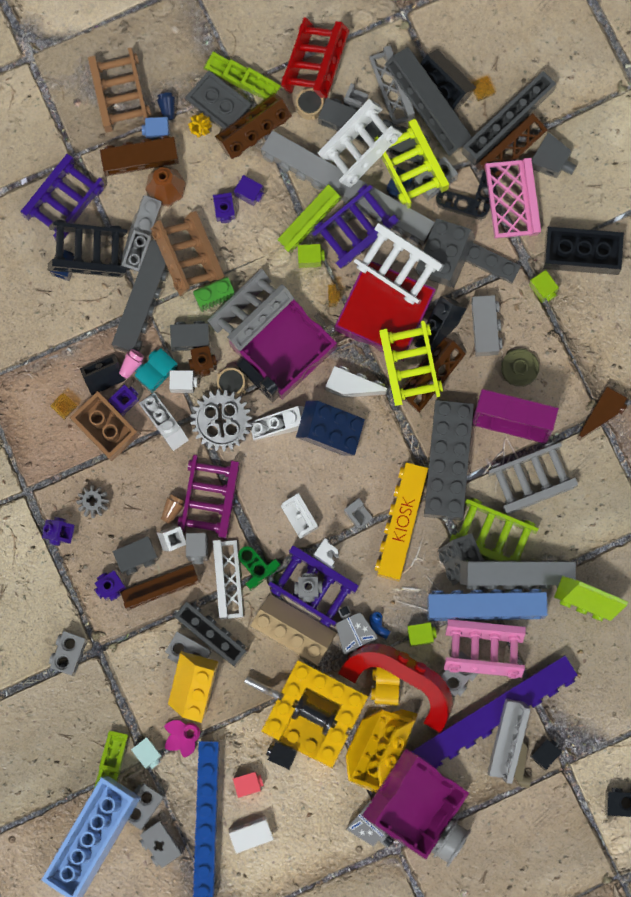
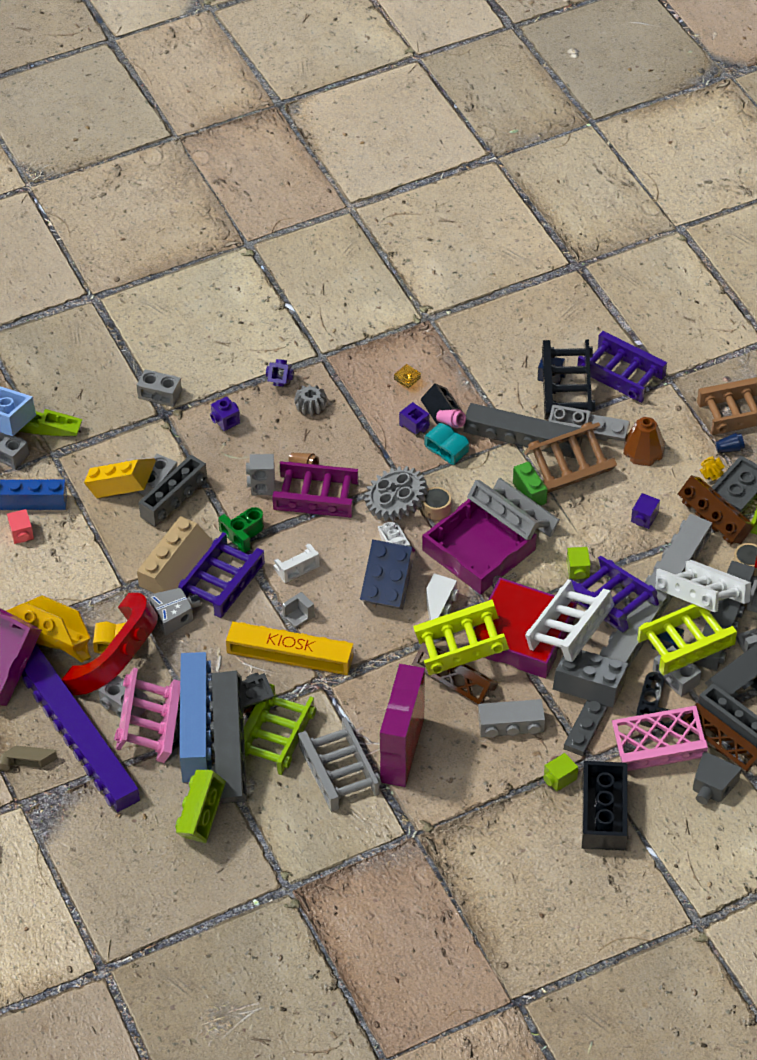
camera: 85 degrees right, 30 degrees down
(104, 426) = (381, 403): medium nougat brick -> none
(135, 556) = (255, 433): dark grey brick -> none
(139, 156) = (672, 421): reddish brown brick -> none
(147, 753) = (57, 448): light aqua brick -> none
(155, 127) = (703, 435): medium blue brick -> none
(159, 587) = (223, 455): reddish brown fence -> none
(163, 421) = (390, 452): white slope -> none
(171, 538) = (272, 448): white brick -> none
(179, 739) = (74, 478): dark pink plate -> none
(182, 382) = (435, 463): white brick -> none
(189, 336) = (483, 465): dark grey brick -> none
(199, 355) = (457, 476): reddish brown brick -> none
(220, 200) = (624, 492): dark purple brick -> none
(220, 579) = (230, 502): white fence -> none
(265, 384) = (428, 517): black beam -> none
(281, 755) = (47, 553): black brick -> none
(308, 595) = (217, 560): light grey brick -> none
(309, 218) = (632, 564): lime fence -> none
(312, 713) = (72, 576): yellow piece -> none
(325, 554) = (253, 578): white hinge -> none
(333, 295) = (536, 581): clear yellow plate -> none
(376, 624) = (179, 631): blue arm -> none
(421, 634) = (167, 665): lime brick -> none
(442, 321) = (515, 678): black slope -> none
(448, 460) = (344, 684): dark grey brick -> none
(509, 740) = (49, 737): light grey fence -> none
(520, 367) = (466, 755): olive tile -> none
(546, 754) = (31, 778): black brick -> none
(606, 410) = (418, 831): reddish brown slope -> none

